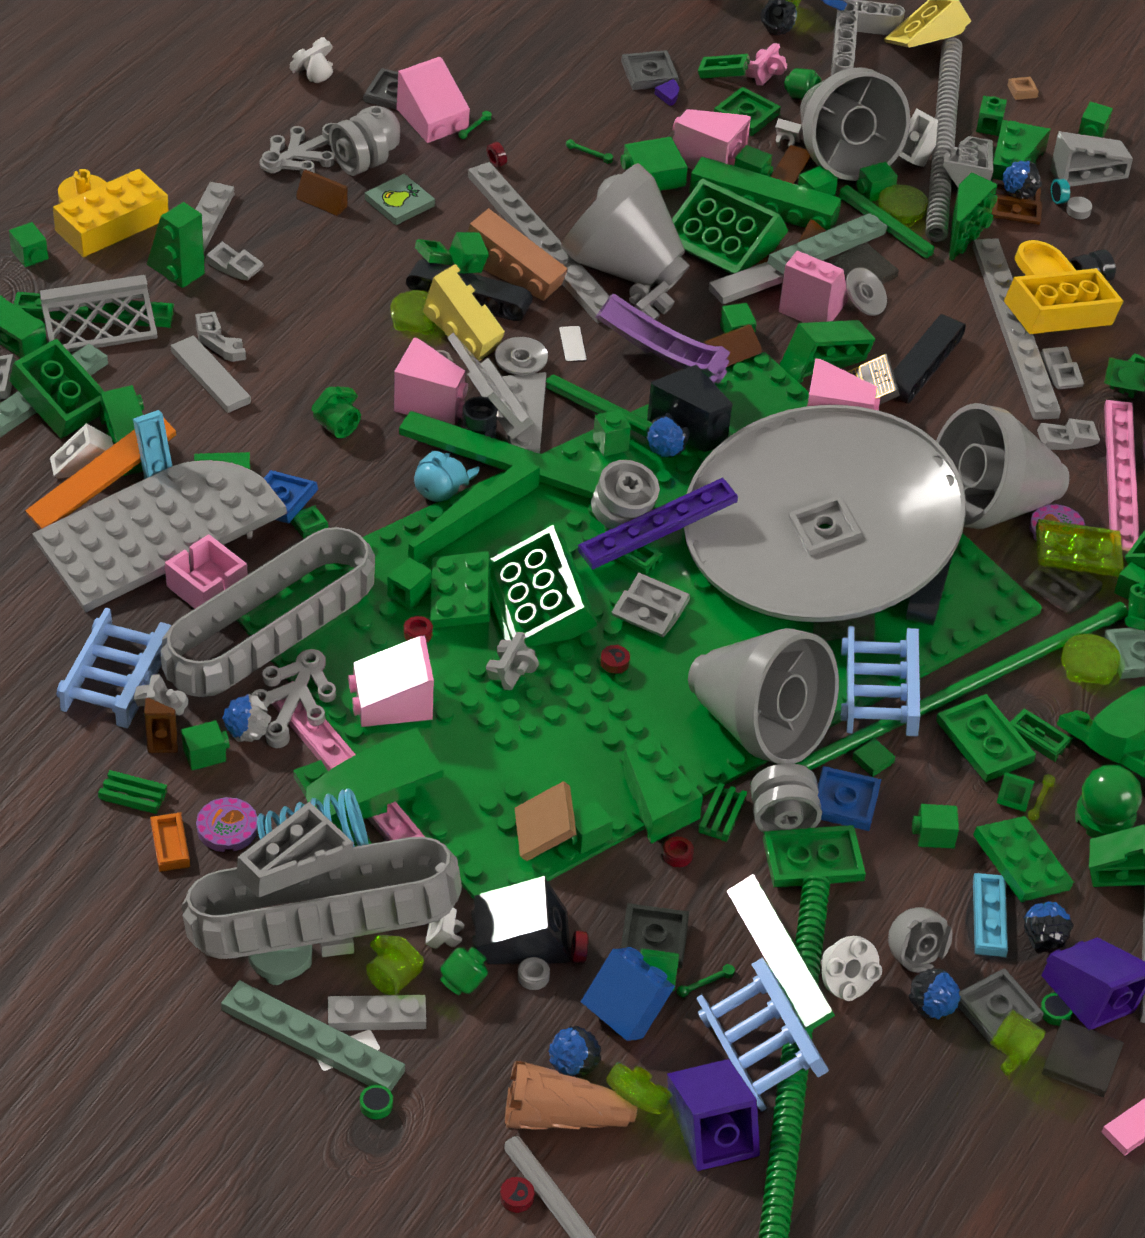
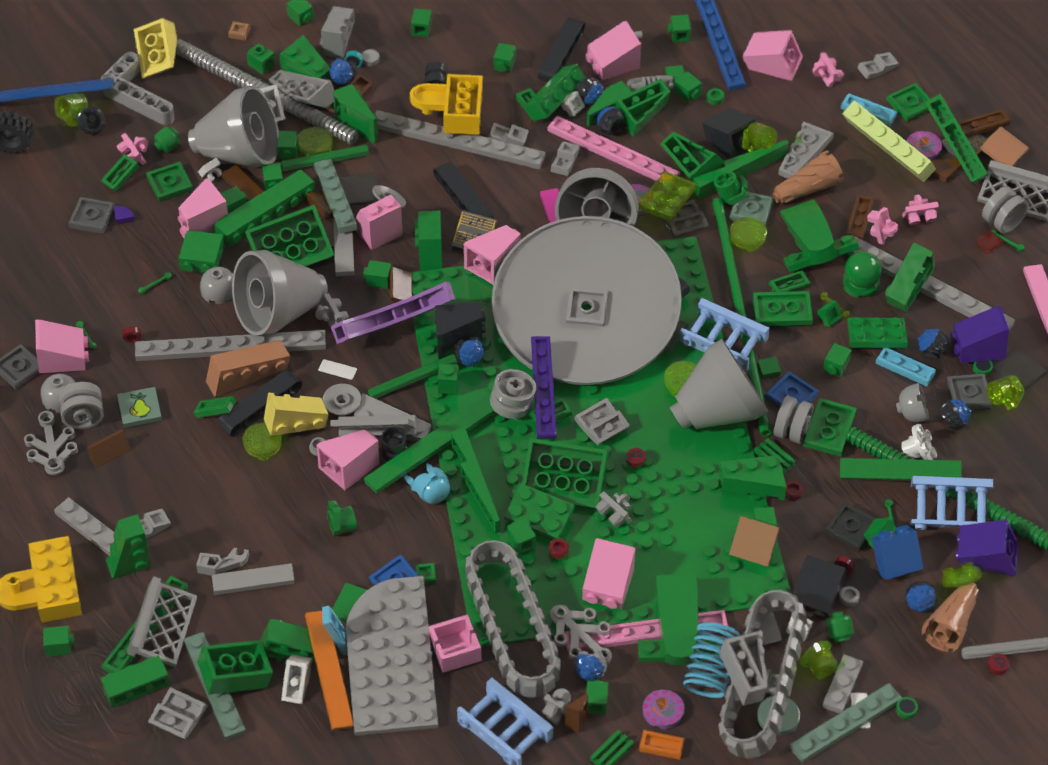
camera: 60 degrees left, 5 degrees up
(469, 252) = (242, 385): green brick -> none

